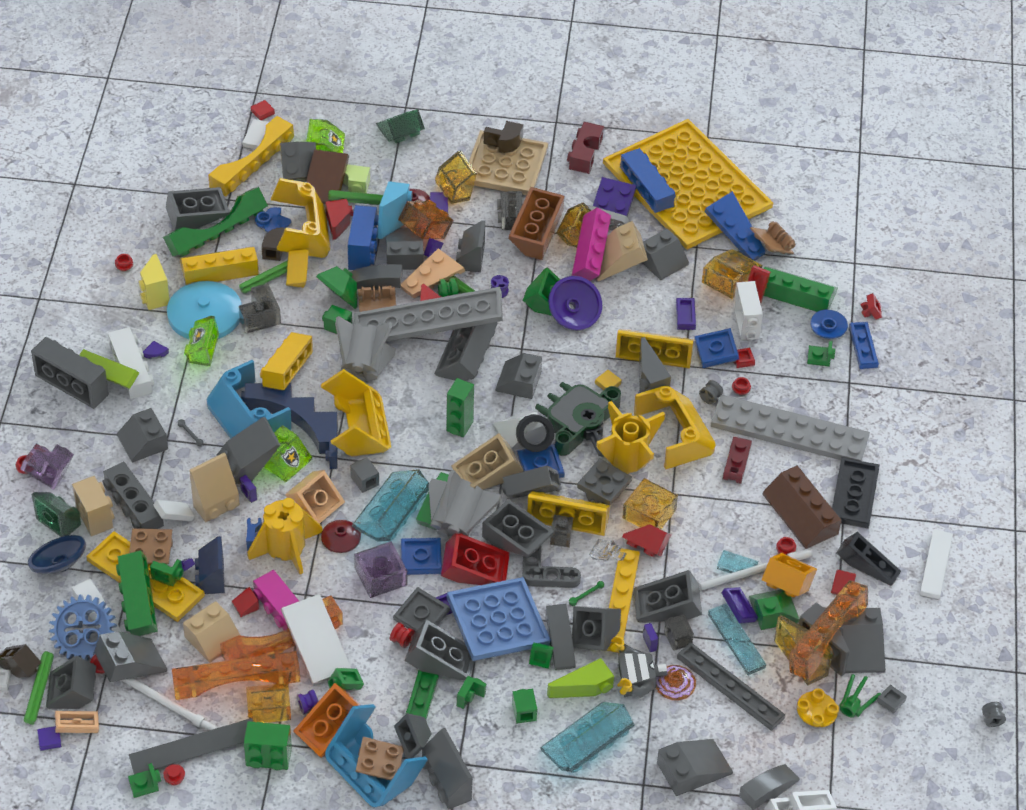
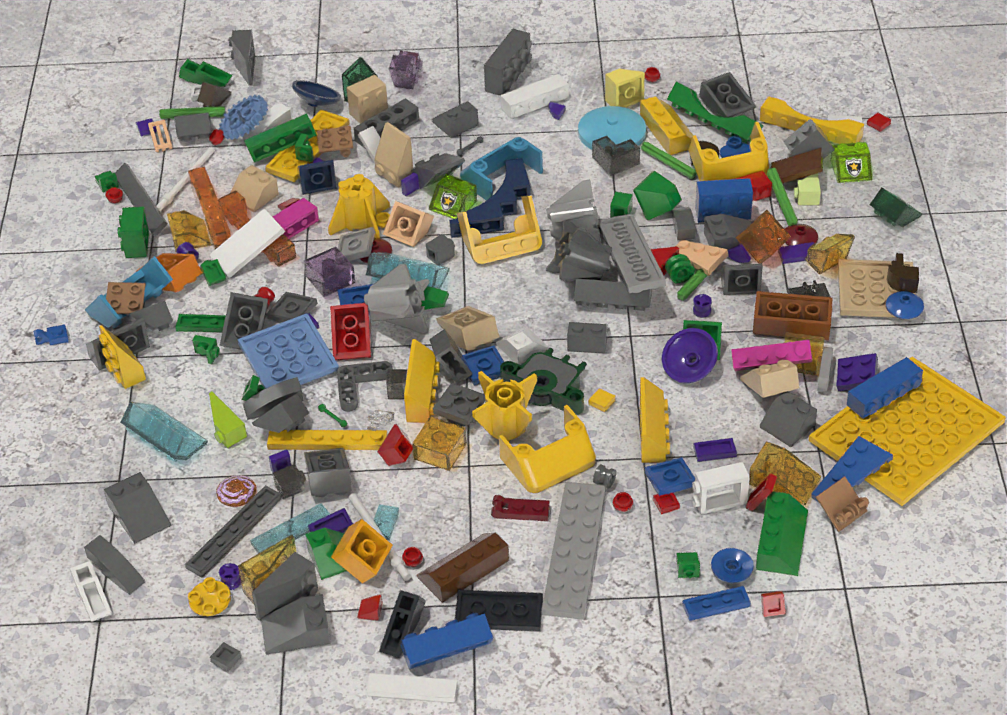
camera: 85 degrees right, 5 degrees down
(115, 371) = (518, 81): lime tile -> none
(128, 656) = (218, 145): dark grey slope -> none
(202, 341) = (563, 127): clear neon green slope -> none
(287, 361) = (549, 175): yellow brick -> none
(297, 268) = (678, 170): yellow slope -> none
(337, 546) = (357, 243): none -> light grey tile
(376, 299) = (656, 228): medium nougat hinge -> none
(391, 207) = (753, 201): medium azure slope -> none
(423, 355) = (579, 255): none -> dark grey brick
(460, 407) = (518, 286): green brick -> none
(487, 764) = (120, 360): none -> yellow slope
(515, 530) = (386, 347): dark grey slope -> none
(524, 705) = (194, 384): green brick -> none
(535, 447) = (513, 345): black tyre -> none
(537, 147) = (904, 305): none -> blue dish
(583, 149) = (937, 340): dark red arch -> none
(636, 669) = (237, 455): torso -> none
(651, 370) = (610, 418): dark grey slope -> none
(793, 684) = (230, 575): none -> dark purple wheel
(809, 650) = (314, 588): clear orange arch -> none
(850, 705) = (215, 623): green plant -> none
(895, 528) = (446, 641): none -> blue brick

